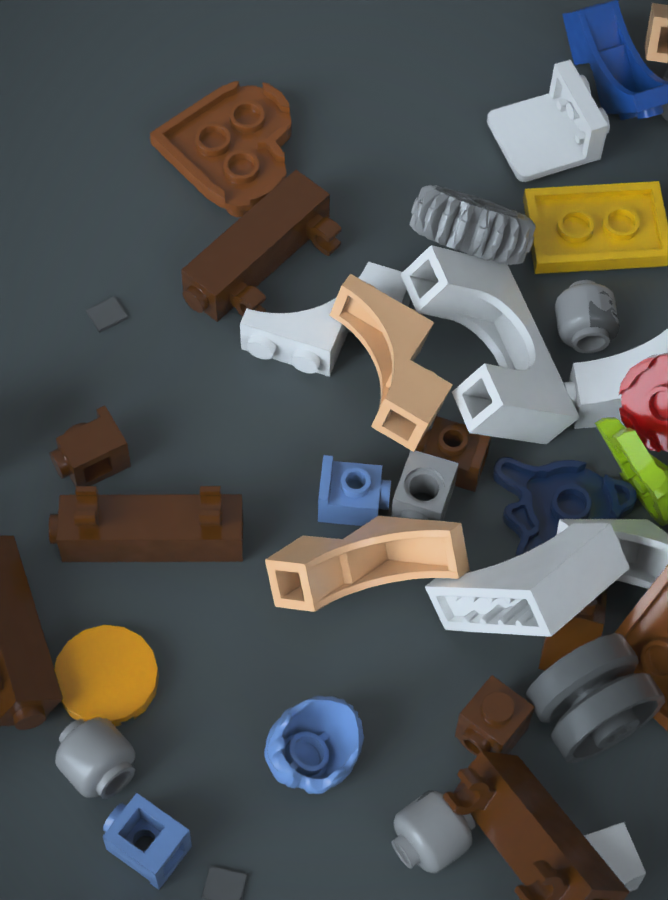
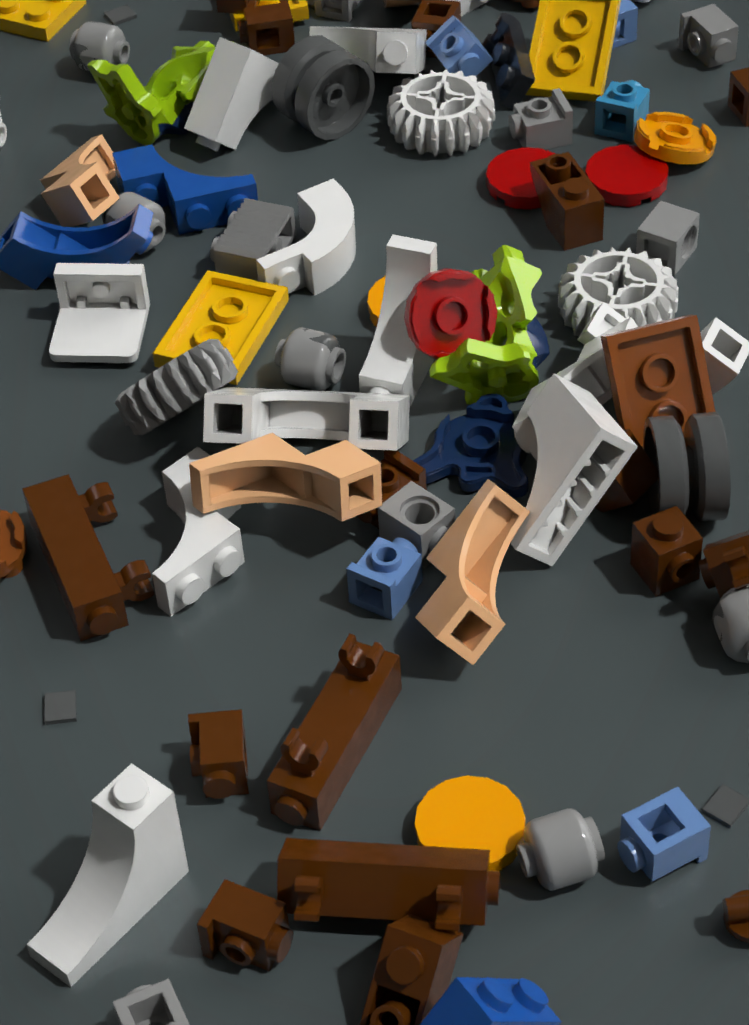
camera: 60 degrees left, 15 degrees down
(315, 744) = (628, 676): medium blue hair -> none

